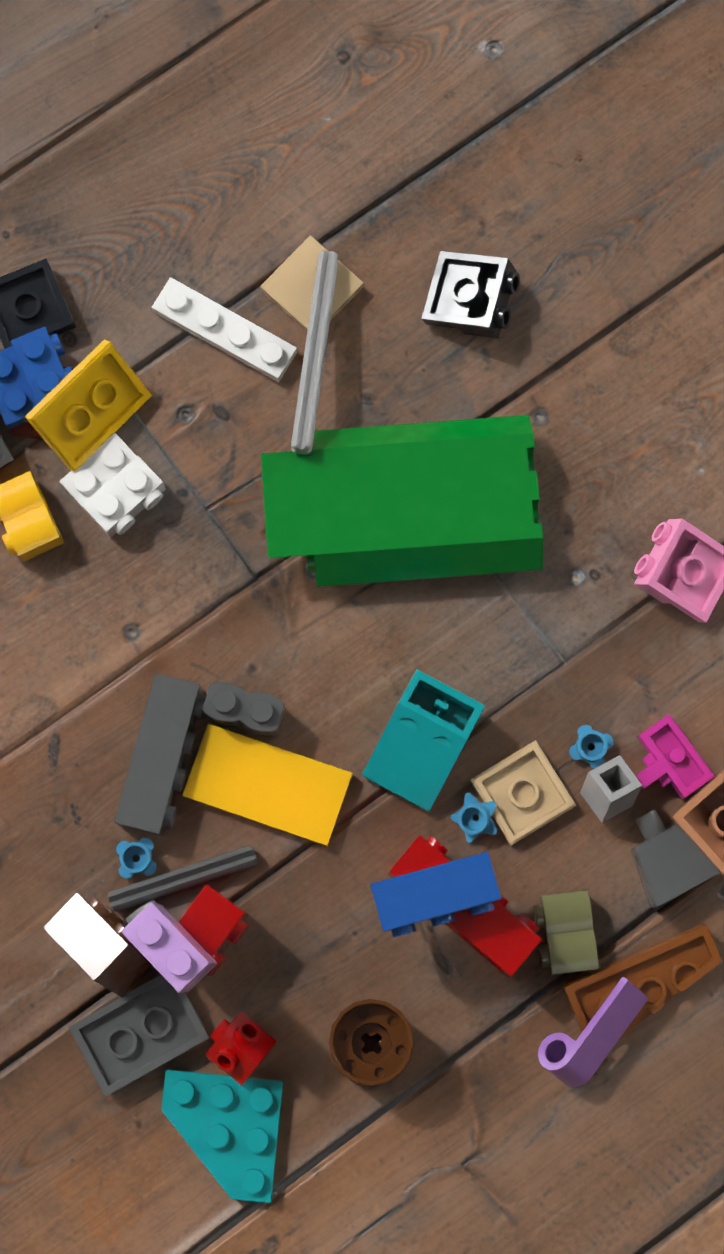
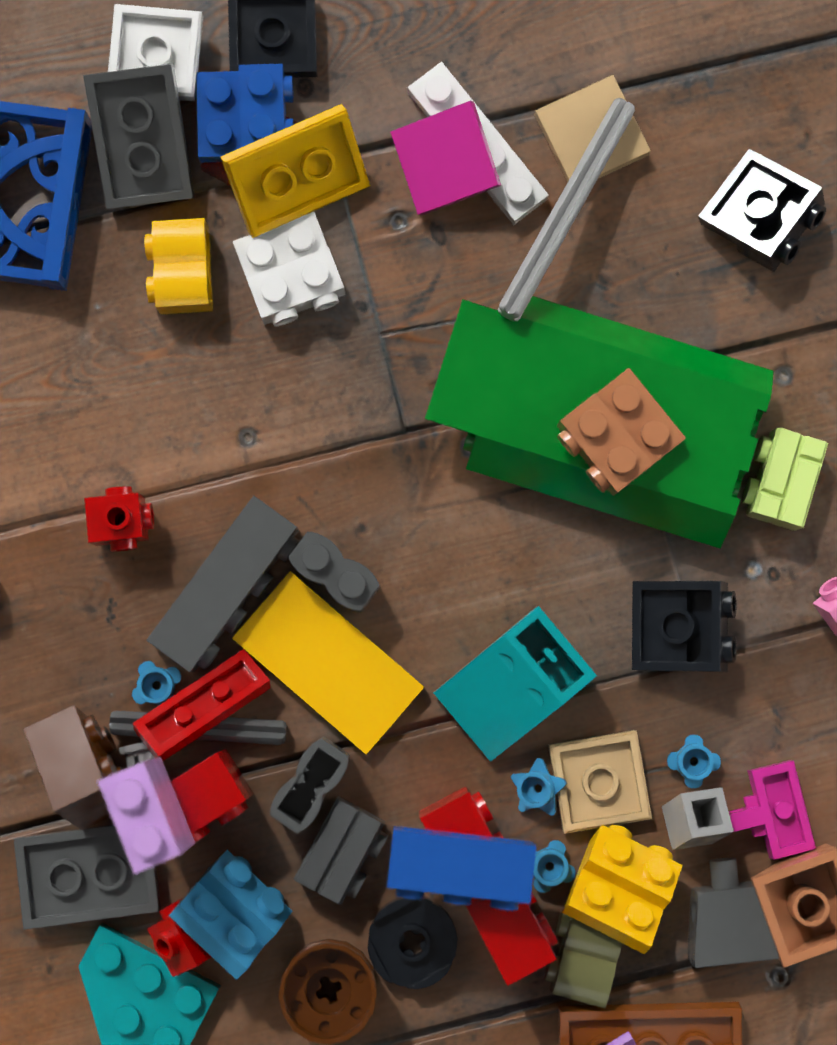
camera: 15 degrees right, 5 degrees up
(41, 731) = (103, 515): none -> red brick
(179, 856) = (201, 705): none -> red plate
(203, 350) = (445, 158): none -> dark pink tile
(268, 1012) = (231, 913): none -> dark azure plate
(294, 873) = (304, 794): none -> dark grey brick
(337, 929) = (341, 850): none -> dark grey brick
(425, 508) = (619, 433): none -> nougat plate
(446, 978) = (437, 948): none -> black plate
(521, 876) = (560, 873): none -> dark azure plate
(538, 642) = (682, 626): none -> black plate
(572, 494) = (785, 478): none -> yellowish green brick
(574, 866) = (623, 887): none -> yellow plate

